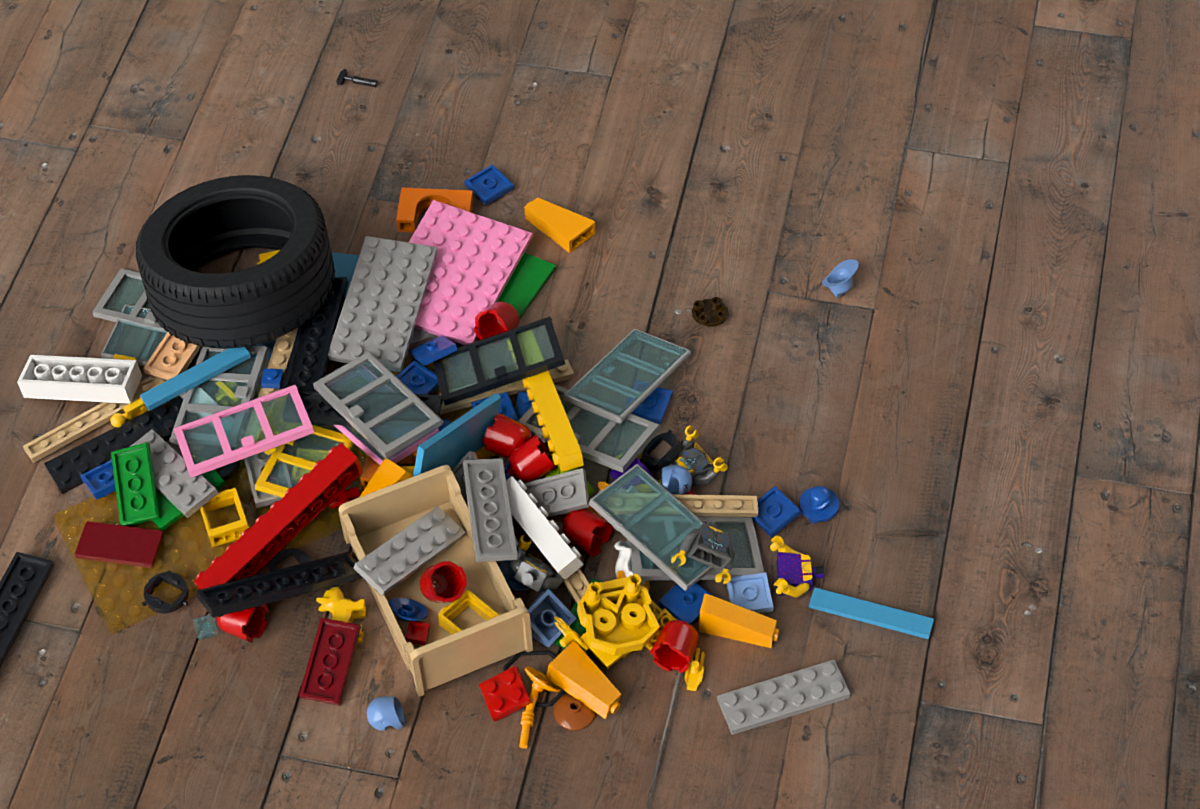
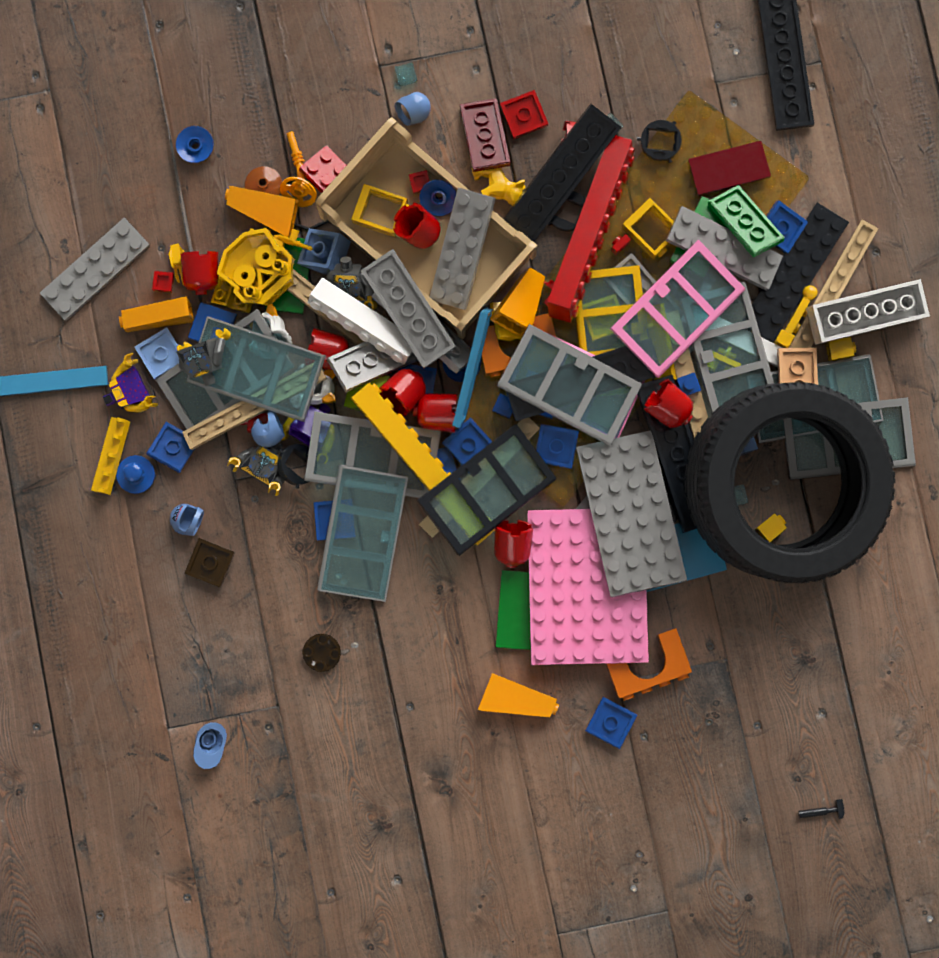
camera: 155 degrees right, 30 degrees up
(194, 377) = (763, 352): dark azure tile -> none
(258, 511) = (619, 244): none -> red plate
(280, 670) = (524, 114): none -> red plate
(300, 357) = (670, 405): none -> red cylinder
(375, 756) = (406, 74): none -> clear light blue plate
(433, 350) = (557, 484): blue plate -> none
(626, 762) = (194, 135): none -> blue dish
(718, 656) = (163, 281): none -> red plate
(780, 410) = (209, 562): none -> dark brown plate
(789, 447) = (186, 519): none -> medium blue helmet
(837, 526) = (110, 455): none -> yellow hinge

